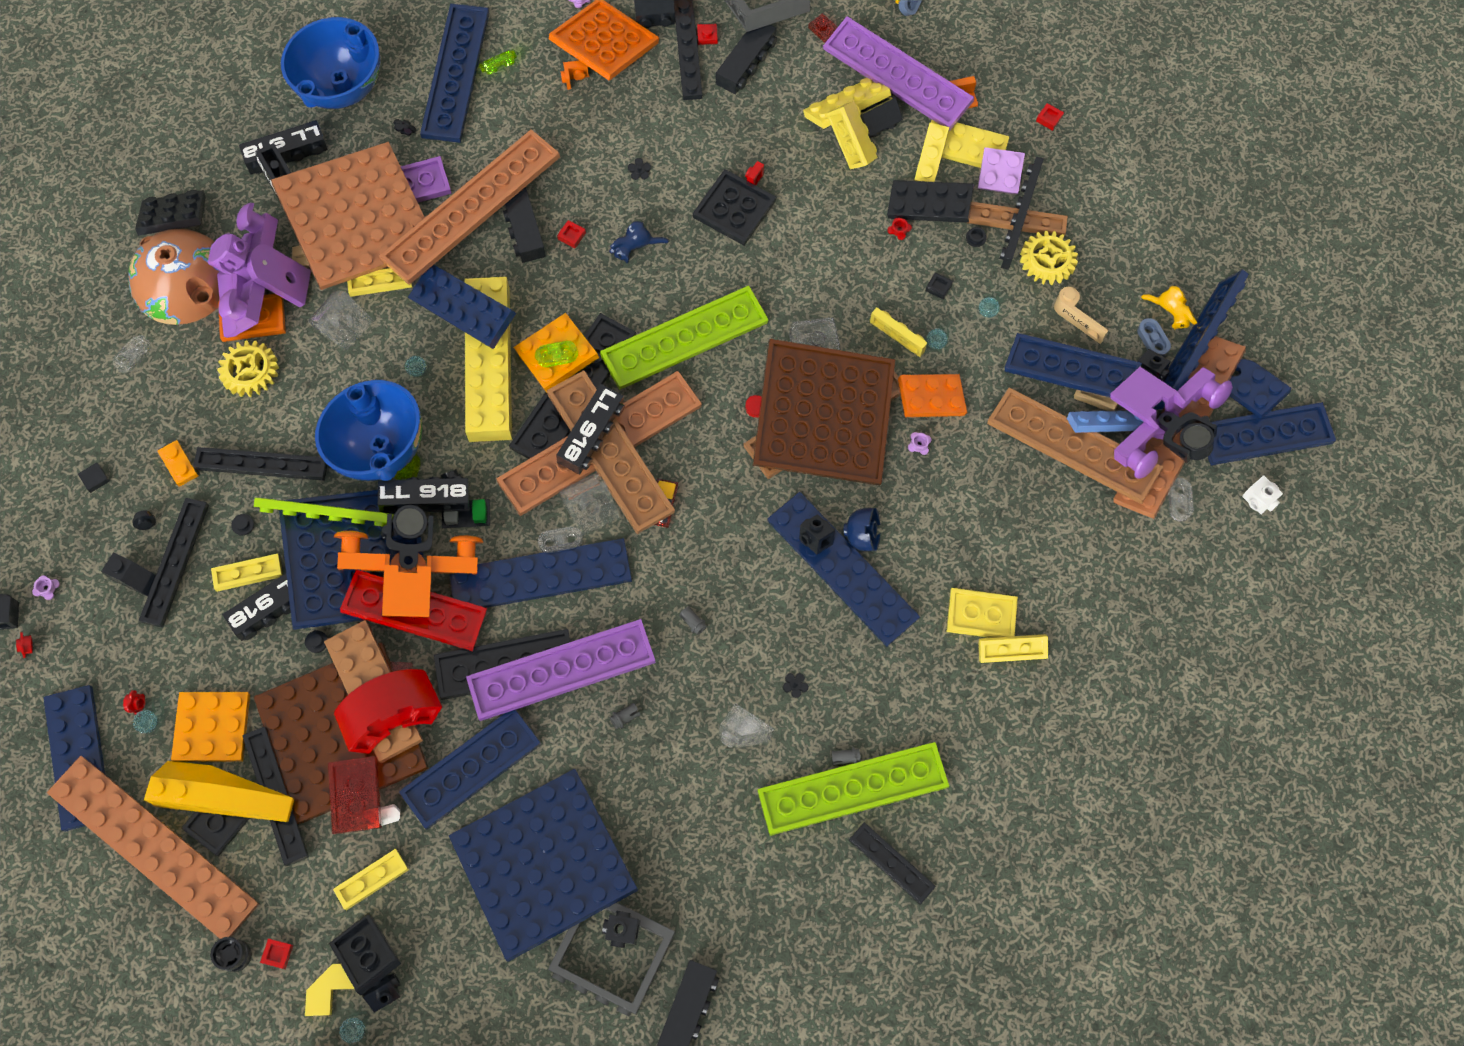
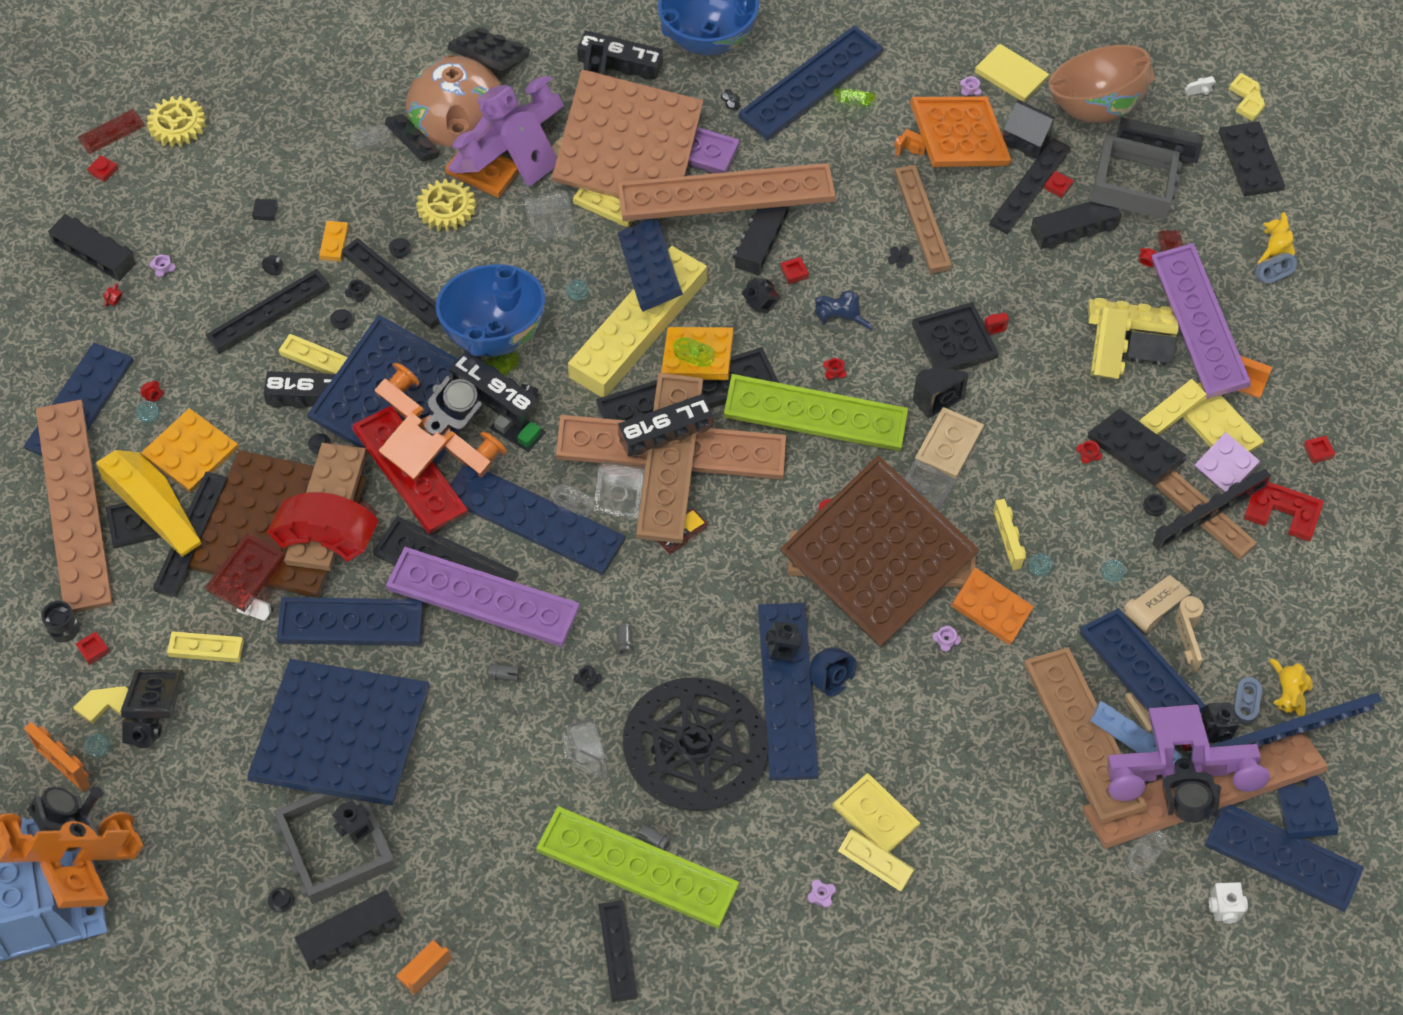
camera: 40 degrees right, 10 degrees down
(129, 574) = (227, 295): black slope -> none
(168, 330) = (412, 137): none -> black plate
(229, 489) = (357, 285): none -> black plate
(239, 431) = (399, 248): none -> black plate
(314, 511) = (398, 339): lime plate -> none
(564, 271) = (761, 295): none -> black brick
(610, 1032) = (280, 899): none -> black plate
(632, 127) = (922, 219): none -> medium nougat plate
(666, 286) = (833, 363): none -> red plate
(691, 665) = (587, 671): none -> black plate
(759, 255) = (939, 389): none -> black slope
(764, 993) = (424, 967): none -> orange panel
(798, 292) = (949, 442): none -> tan plate
(810, 669) = (693, 753): none -> black piece
(817, 49) = (1145, 256): none -> red plate
(939, 285) = (1083, 523): black tile -> none
(994, 709) = (821, 900): none -> lavender plate
(1038, 311) = (1151, 606): none -> tan door
(1044, 262) = (1208, 577): light yellow gear -> none
(1073, 168) = (1302, 506): none -> red plate

